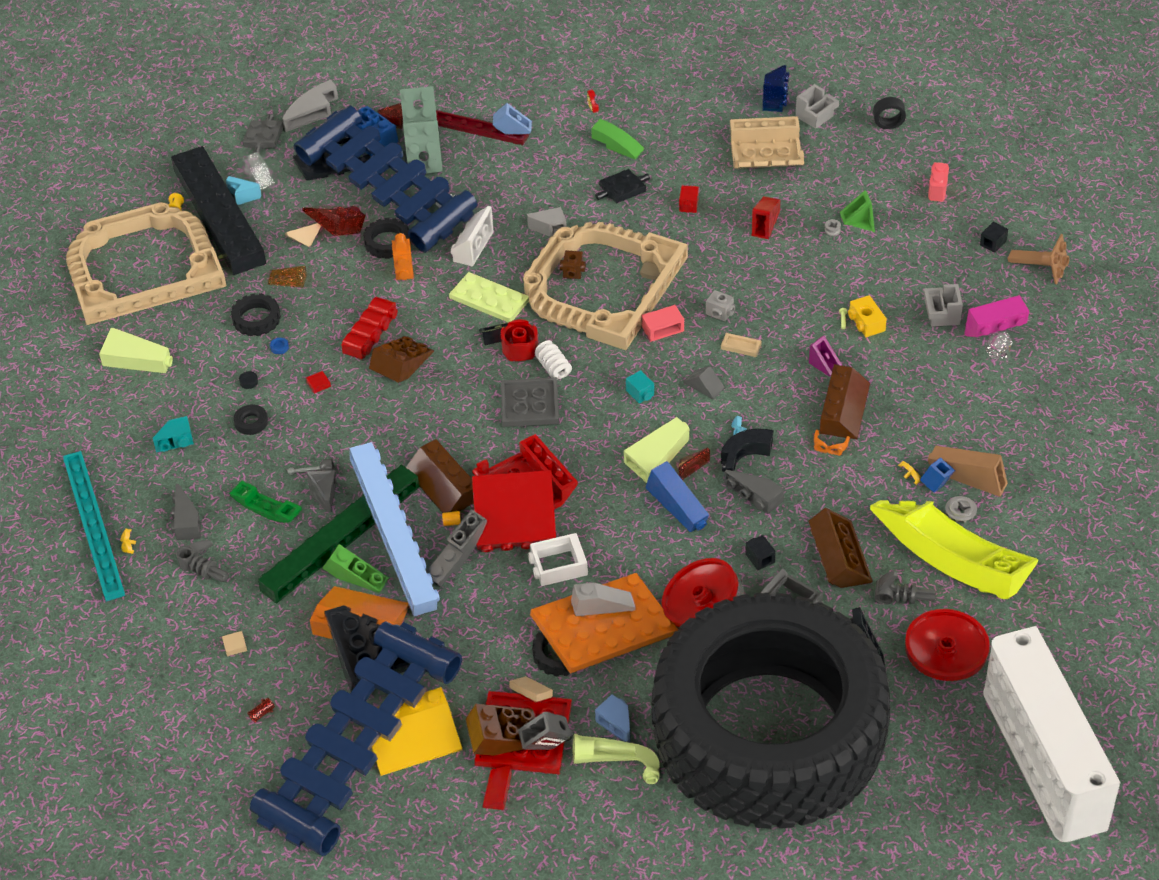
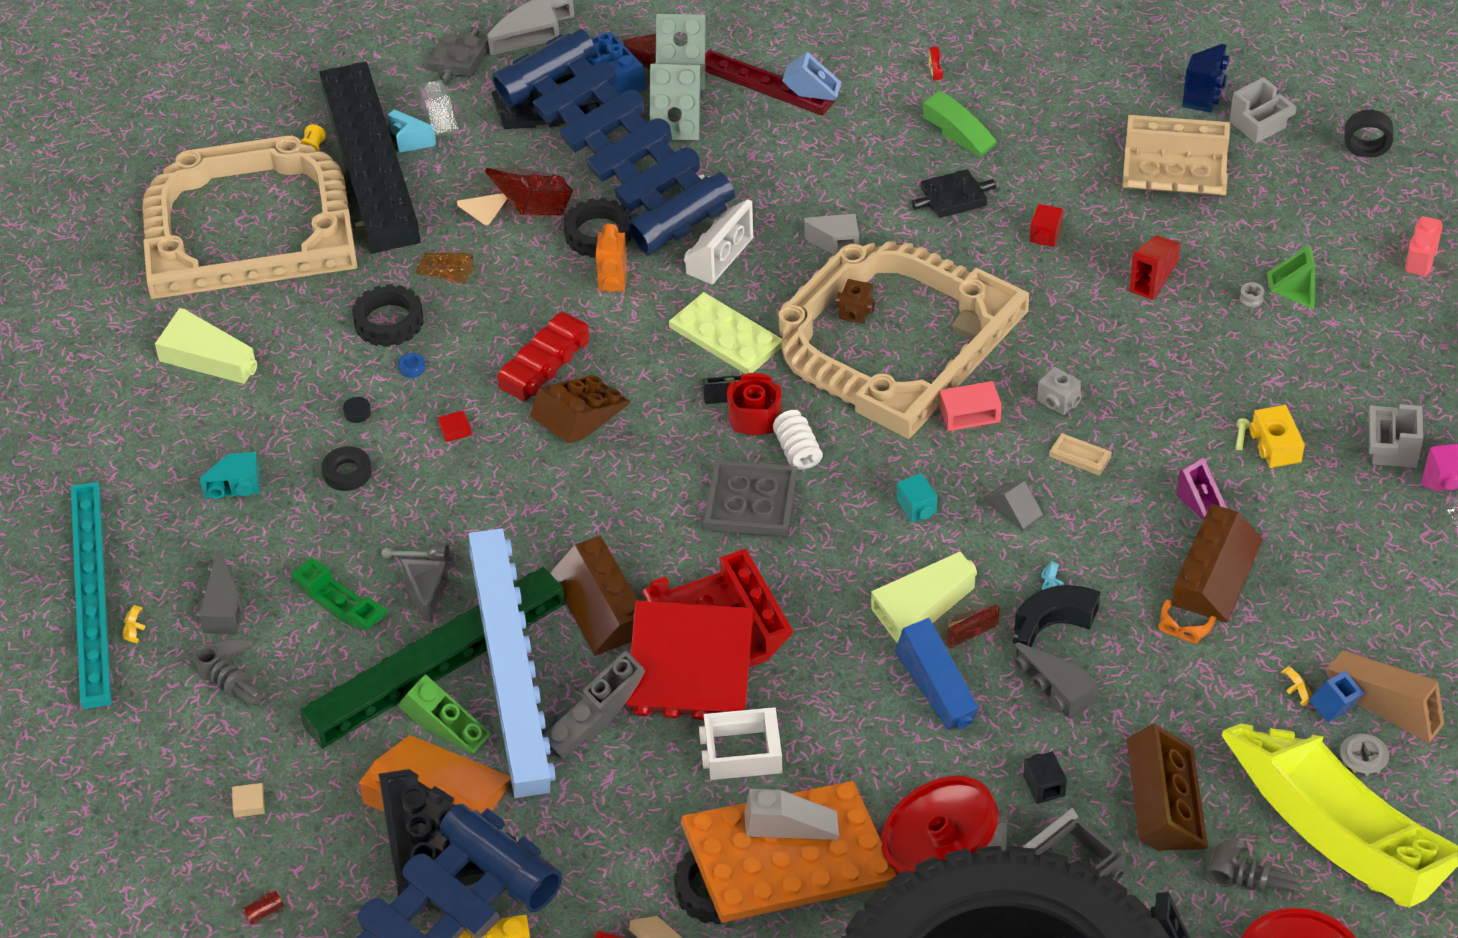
camera: 10 degrees right, 0 degrees up
(451, 518) = (599, 657): light orange hinge -> none

